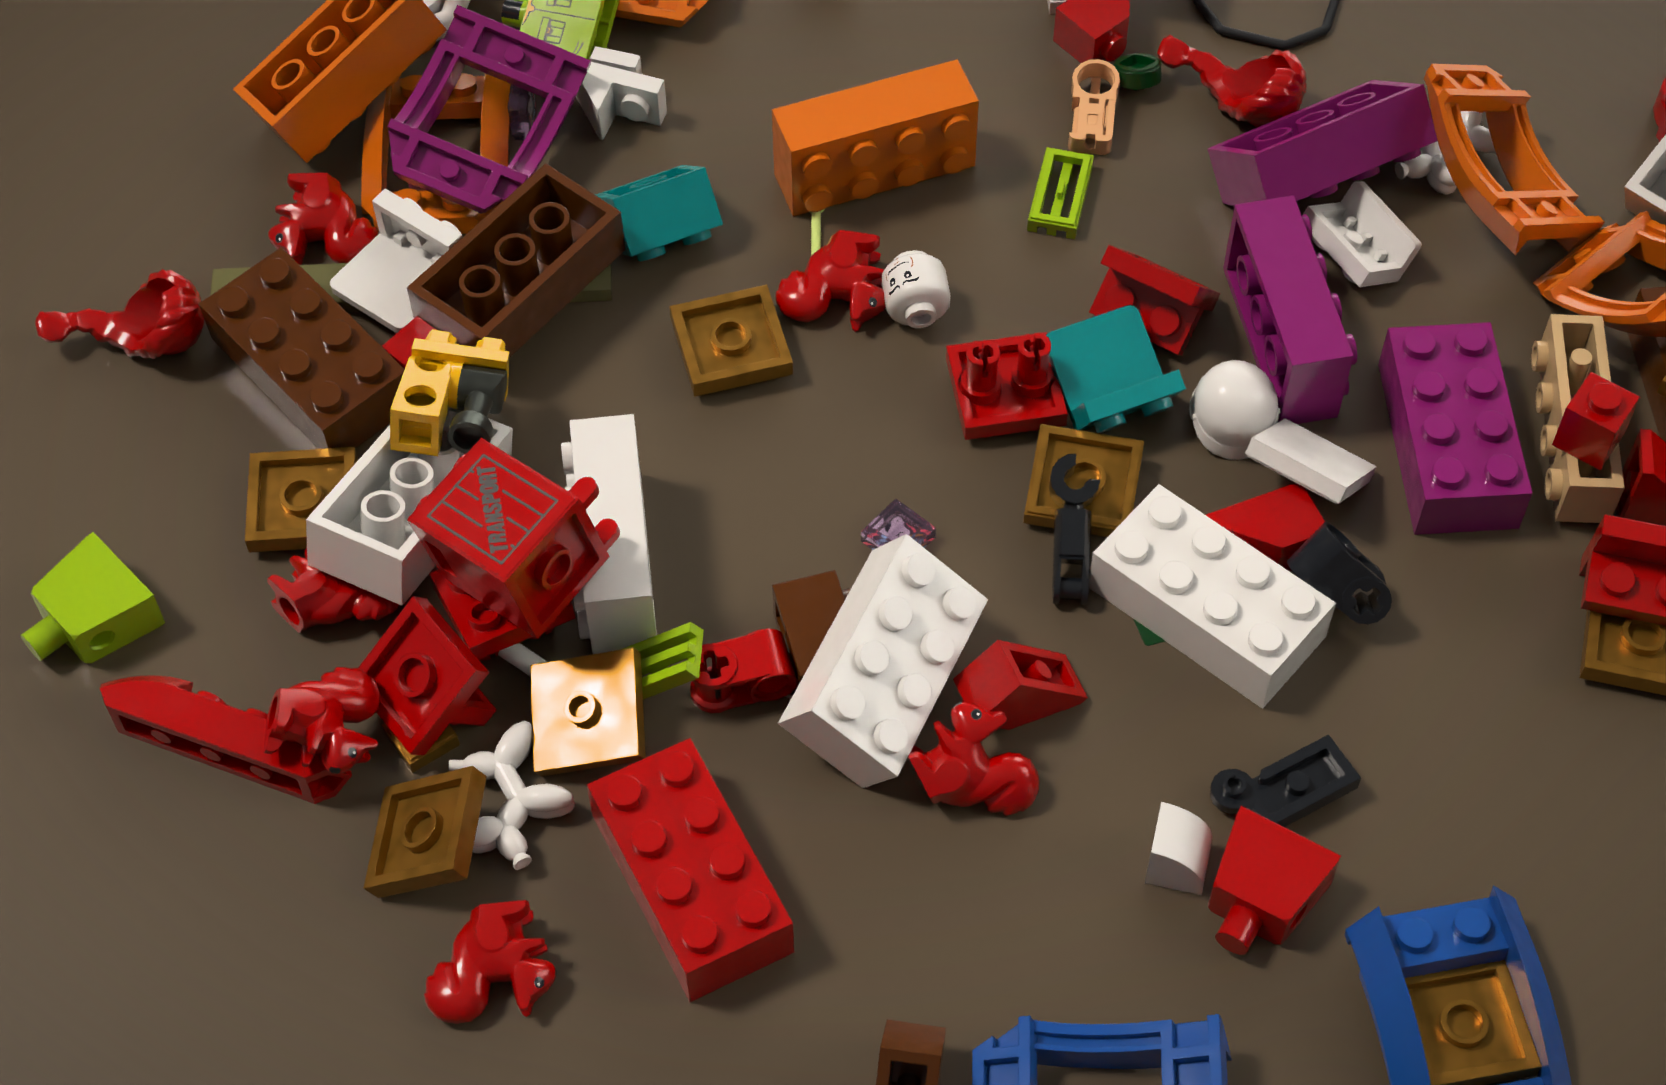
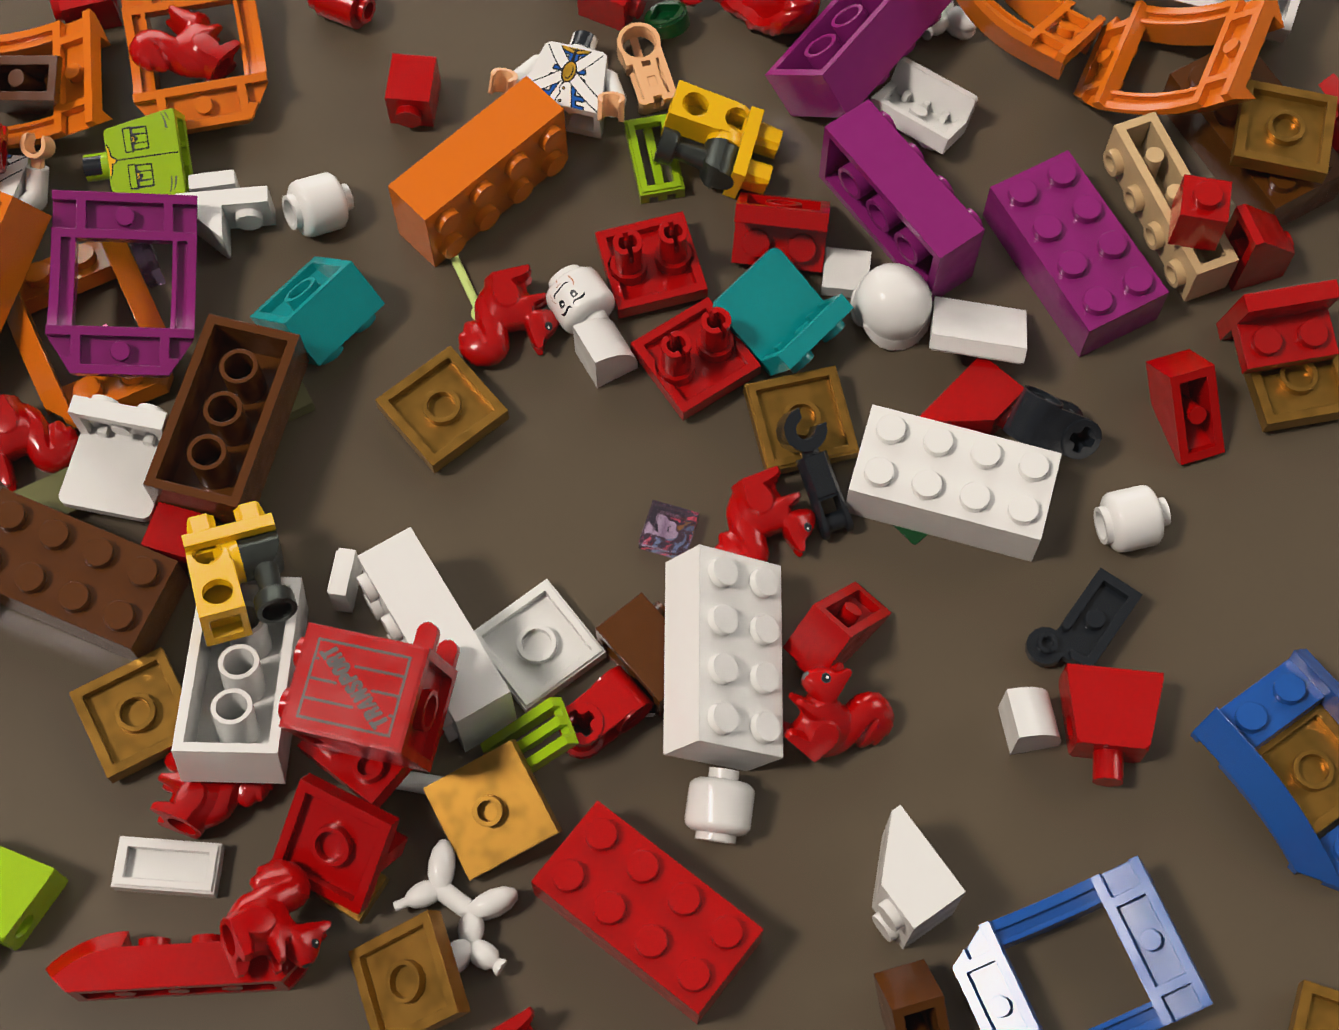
camera: 25 degrees left, 10 degrees up
(260, 645) = (168, 867): none -> white tile
(548, 454) = (343, 582): none -> white tile
(706, 117) = (317, 204): none -> white head
(714, 586) = (539, 645): none -> white tile
(813, 802) = (719, 806): none -> white head
(851, 48) = (413, 90): none -> red brick
(916, 343) = (603, 350): none -> white brick
(965, 948) = (911, 883): none -> white slope
(998, 549) = (759, 512): none -> red animal
(1005, 284) = (651, 264): none -> red plate
(1012, 94) = (575, 79): none -> torso
(1142, 193) = (728, 136): none -> yellow hips
(1199, 357) = (844, 270): none -> white tile
(1387, 702) = (1131, 518): none -> white head
(1504, 618) = (1187, 404): none -> red slope

